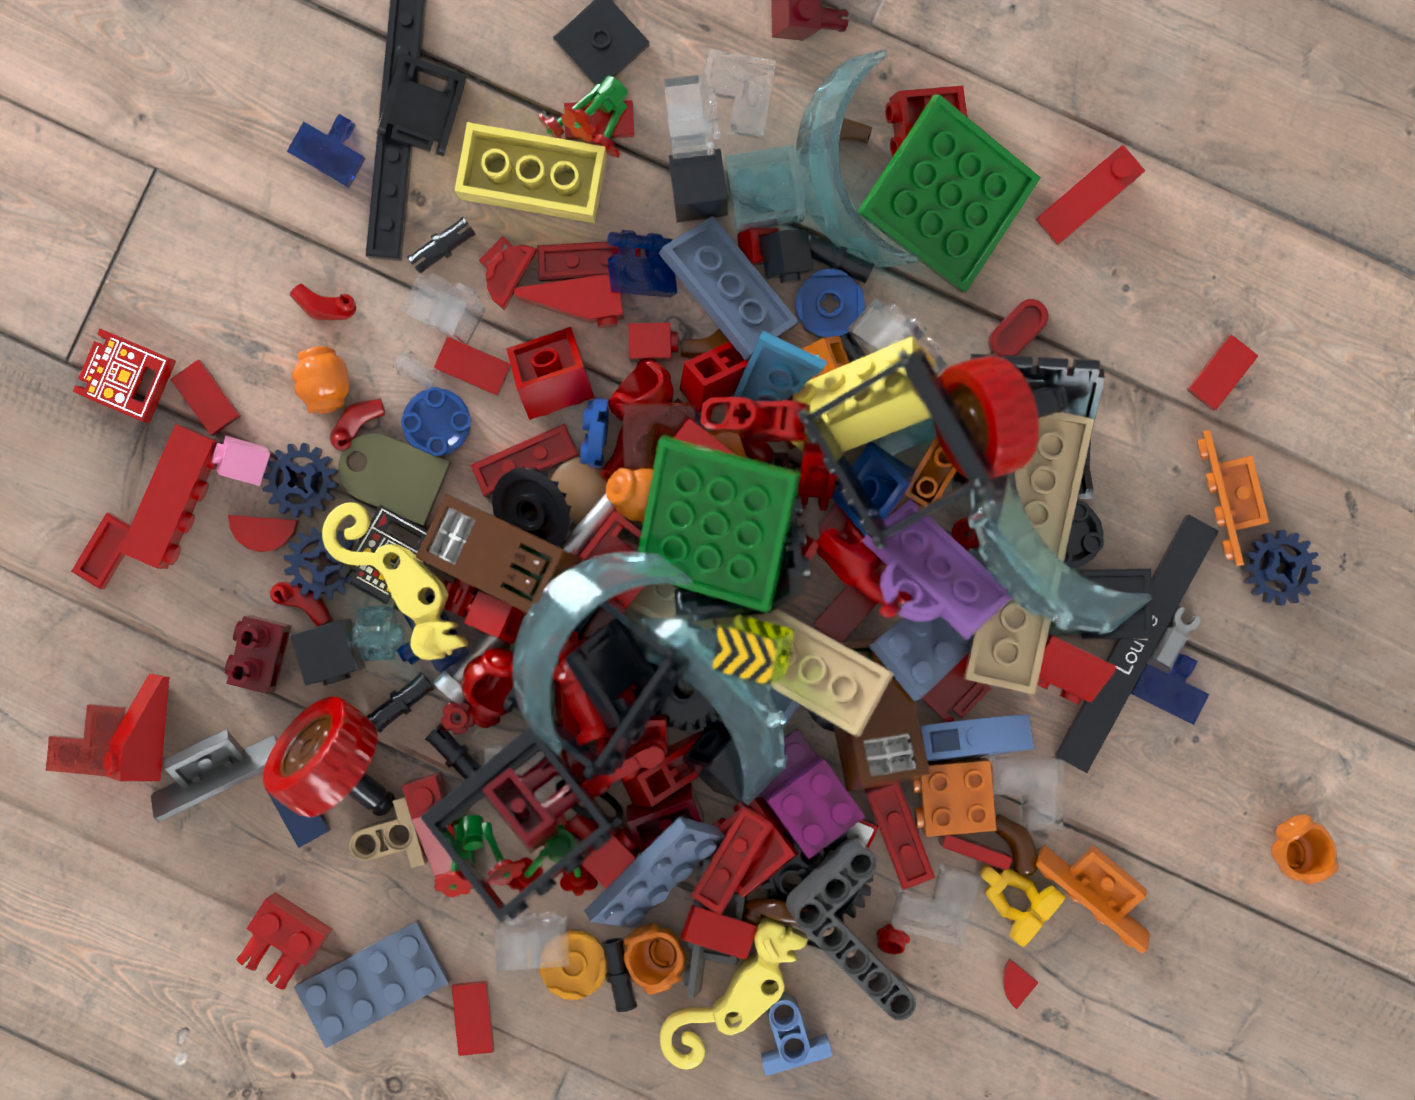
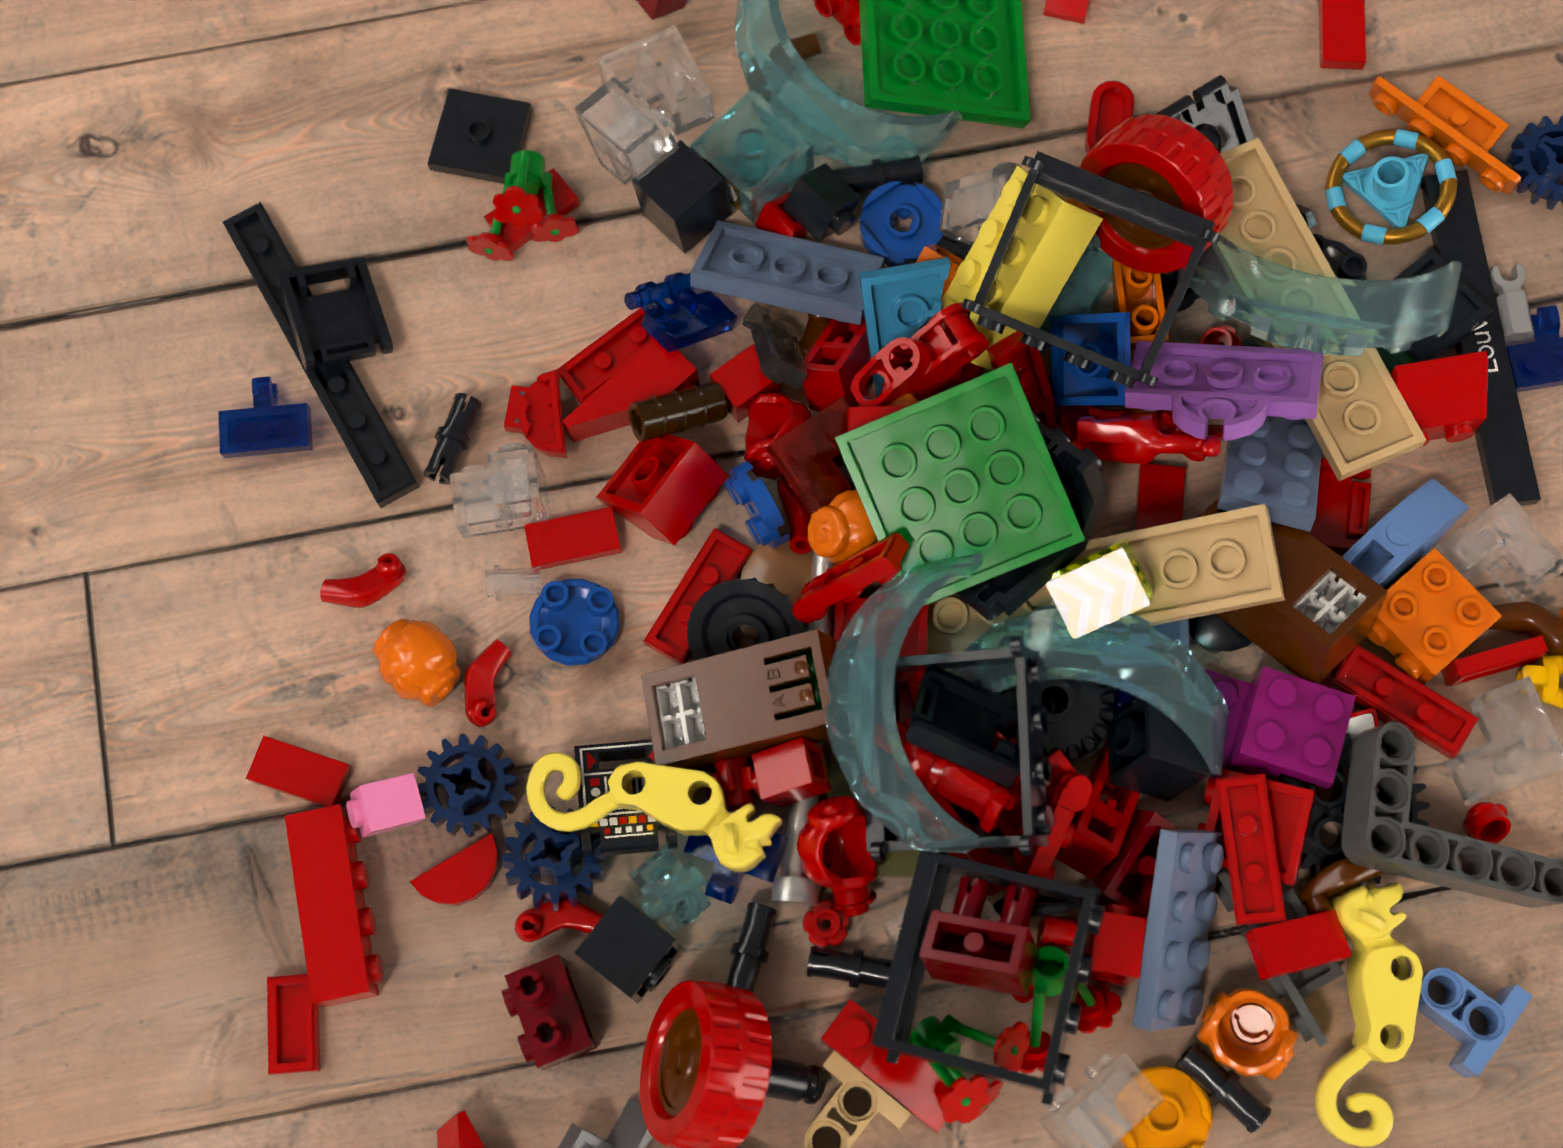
camera: 30 degrees left, 15 degrees down
(116, 372) = (179, 811): red container -> none
(394, 476) = (567, 709): olive tile -> none
(531, 172) = (499, 299): light yellow brick -> none
(590, 334) = (677, 411): none -> dark brown axle
(612, 529) = (850, 577): none -> red hinge
(681, 337) = (776, 347): none -> clear smoke plate
(1161, 506) = (1390, 186): none -> medium azure piece

